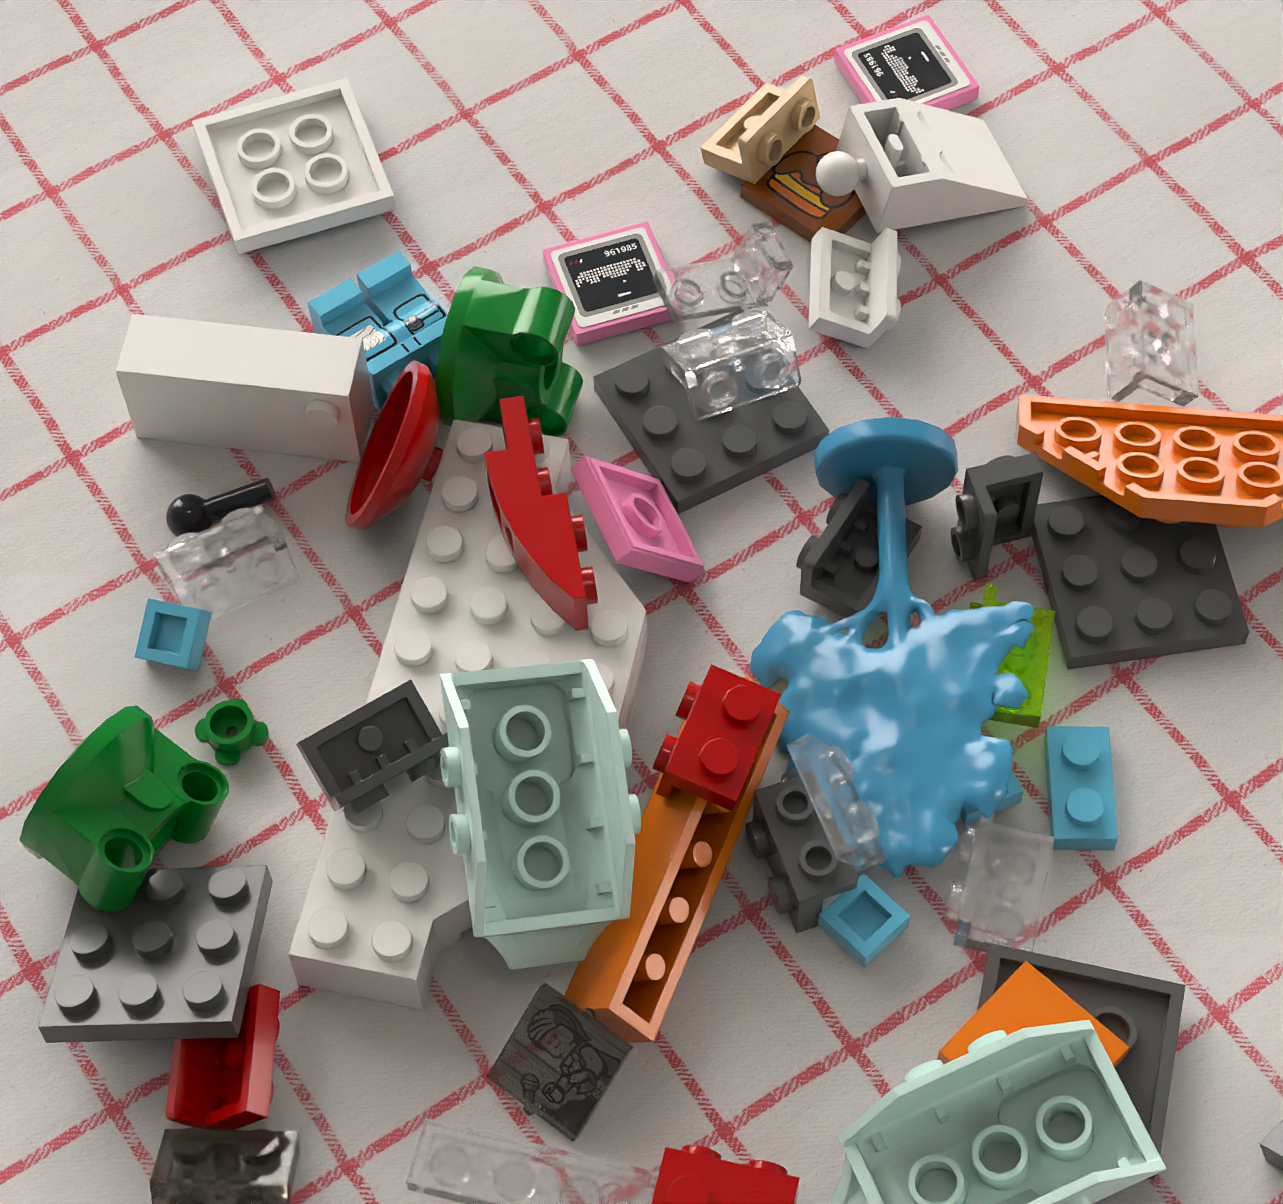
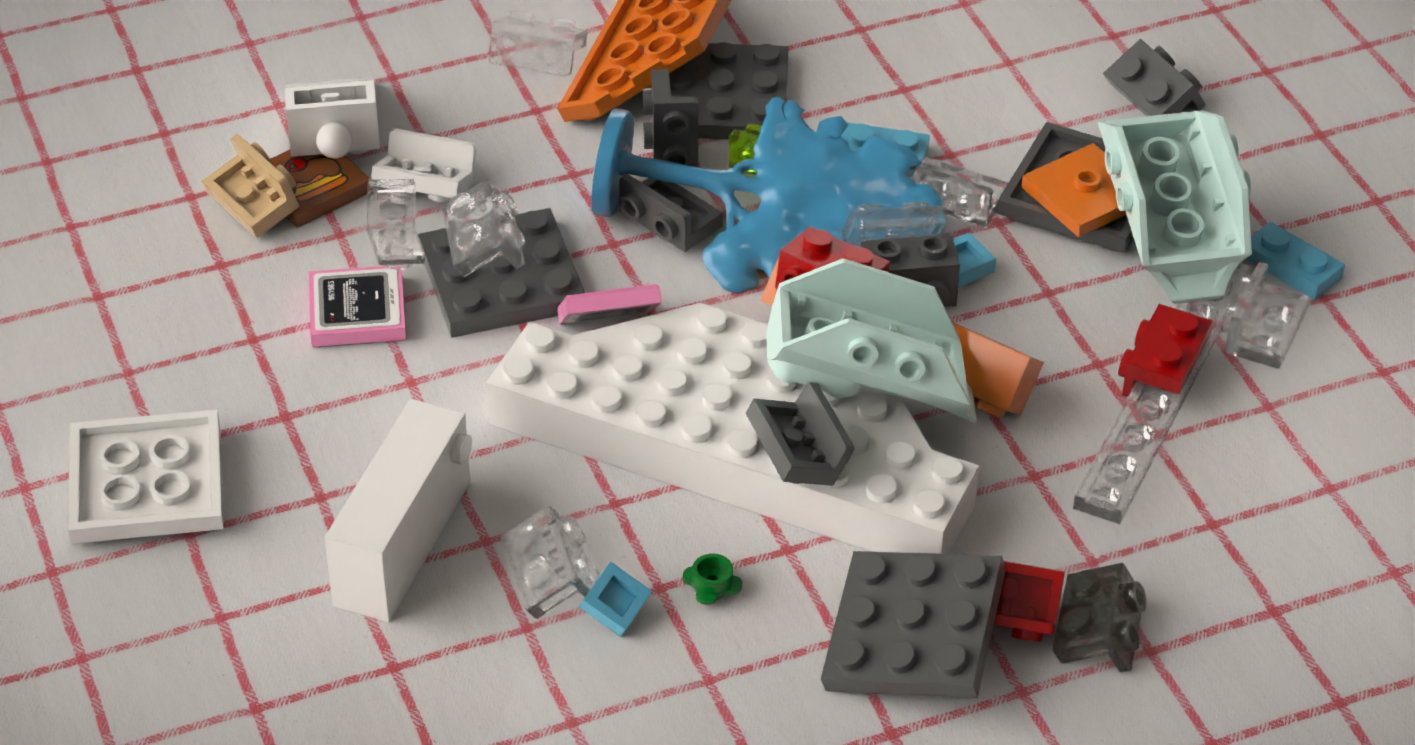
camera: 80 degrees left, 15 degrees down
(120, 806) = (788, 621): green piece -> none
(195, 514) = (489, 588): black bar -> none
(391, 317) = (350, 428): medium azure hips -> none
(398, 449) = (508, 448): red dish -> none
(504, 346) = (437, 337): green piece -> none
(536, 521) = (630, 329): red slope -> none
(559, 1061) = (1047, 415): clear smoke piece -> none
(907, 64) = (218, 111): tile -> none

